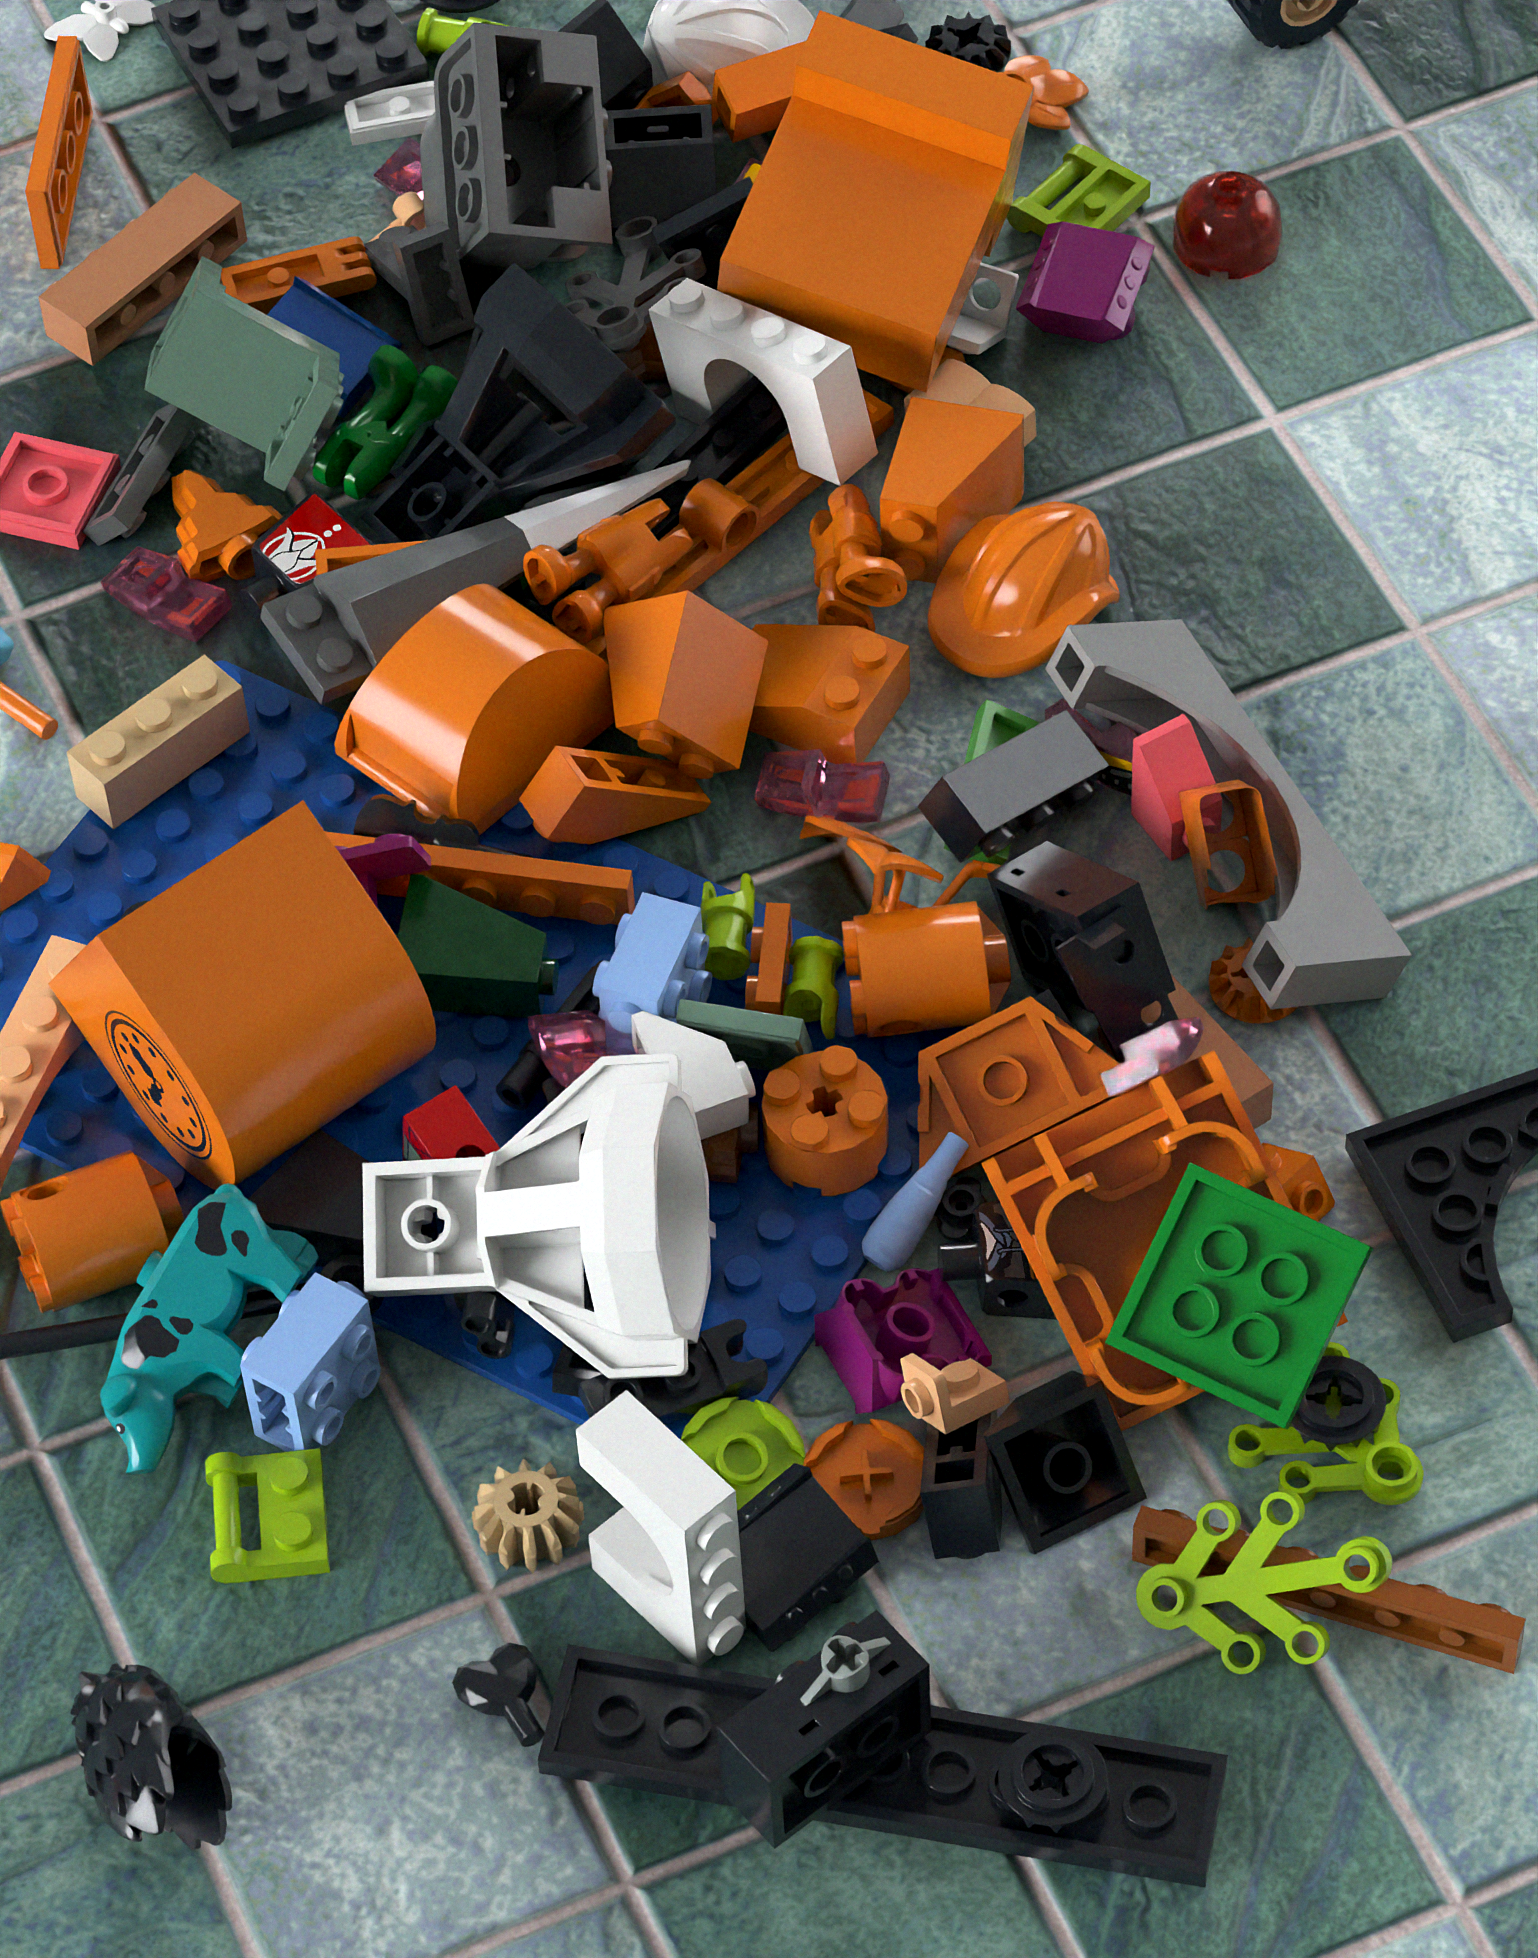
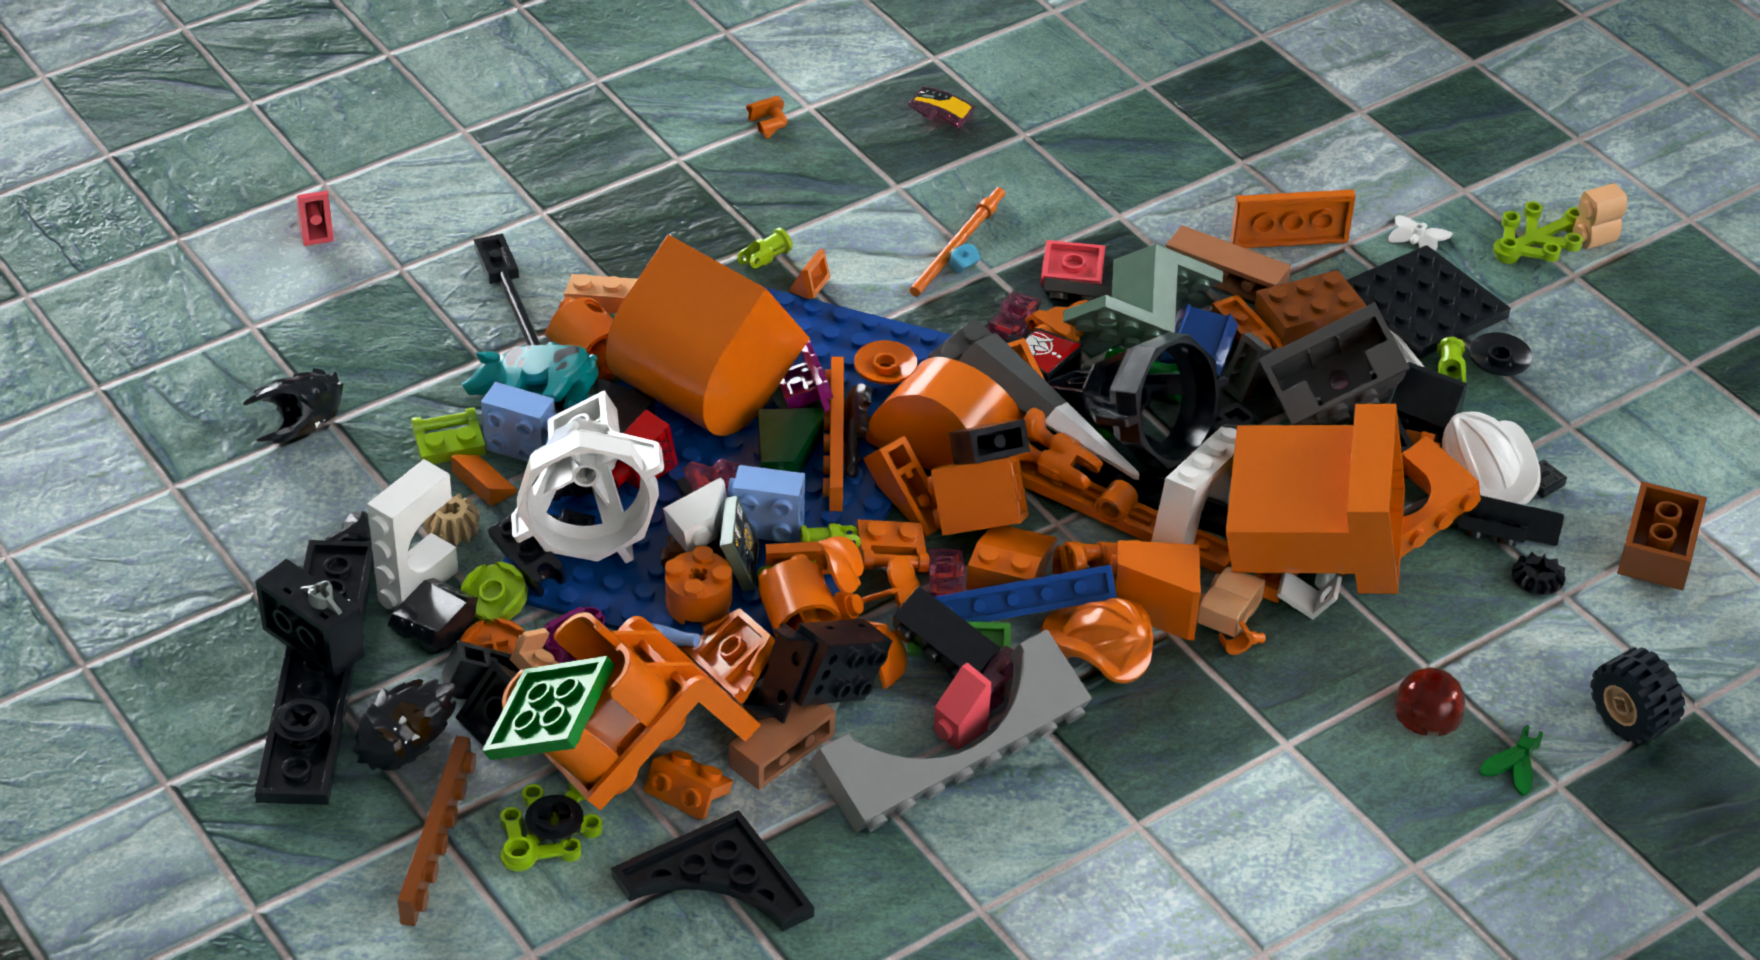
camera: 75 degrees right, 10 degrees down
(158, 741) = (898, 315): tan brick -> none
(277, 761) = (885, 362): none -> orange dish
(291, 177) = (1306, 305): none -> dark orange brick
(406, 1464) = (482, 478): none -> orange slope
(622, 620) = (989, 442): none -> black brick
(724, 845) = (890, 539): none -> orange plate
(935, 672) = (1032, 595): none -> blue plate
(1049, 426) = (1243, 641): none -> orange piece
(1051, 91) = (1514, 607): orange plate -> none
(1085, 282) = (1351, 637): magenta slope -> none
(1098, 1623) = (403, 723): none -> black head
(1099, 201) = (1425, 634): lime plate -> none
(1153, 1054) = (746, 694): clear pink slope -> none
(1249, 1583) = (420, 789): lime plant -> none
(1256, 854) = (923, 723): orange piece -> none
(1353, 159) = (1515, 757): none -> green piece

